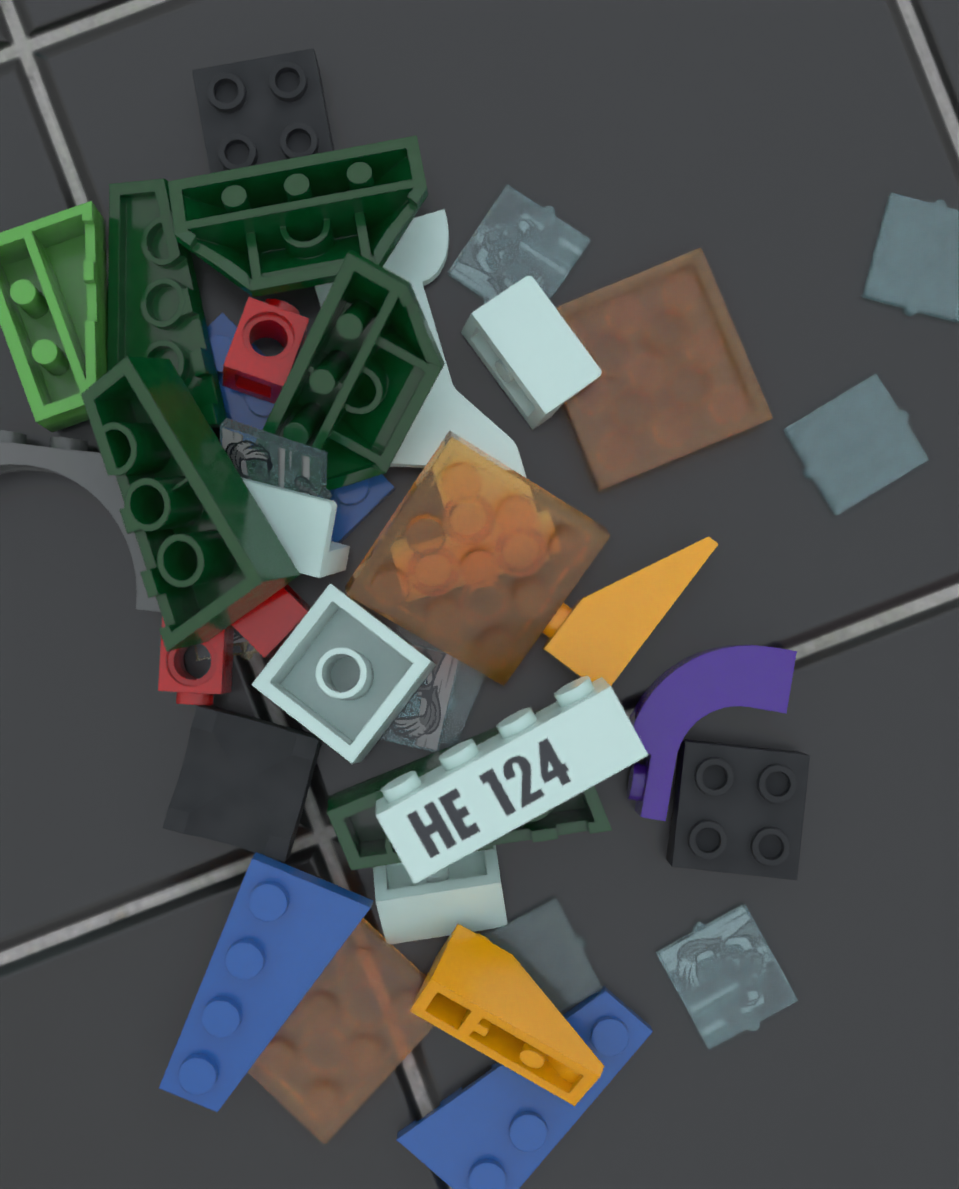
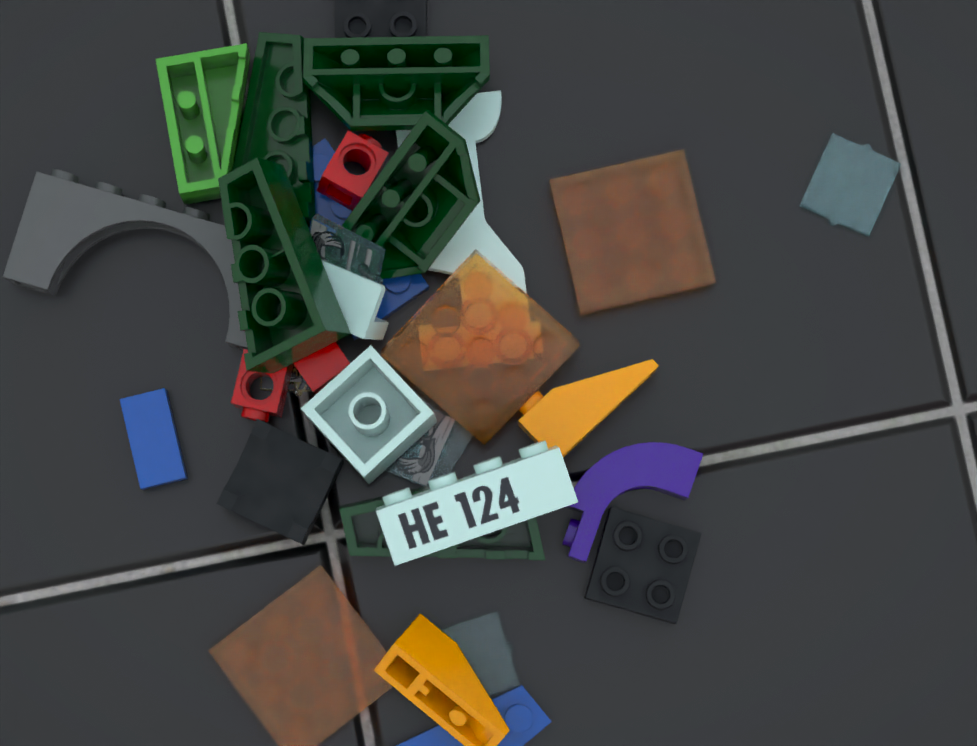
camera: 15 degrees right, 5 degrees down
(67, 749) = (153, 438): none -> blue tile
(264, 964) = (272, 616): blue wing -> none
(460, 894) = (403, 591): light aqua panel -> none
(516, 243) = (549, 133): clear light blue piece -> none
(530, 350) = (545, 203): light aqua panel -> none
(726, 976) = (614, 692): clear light blue piece -> none
(855, 444) = (776, 313): clear light blue piece -> none

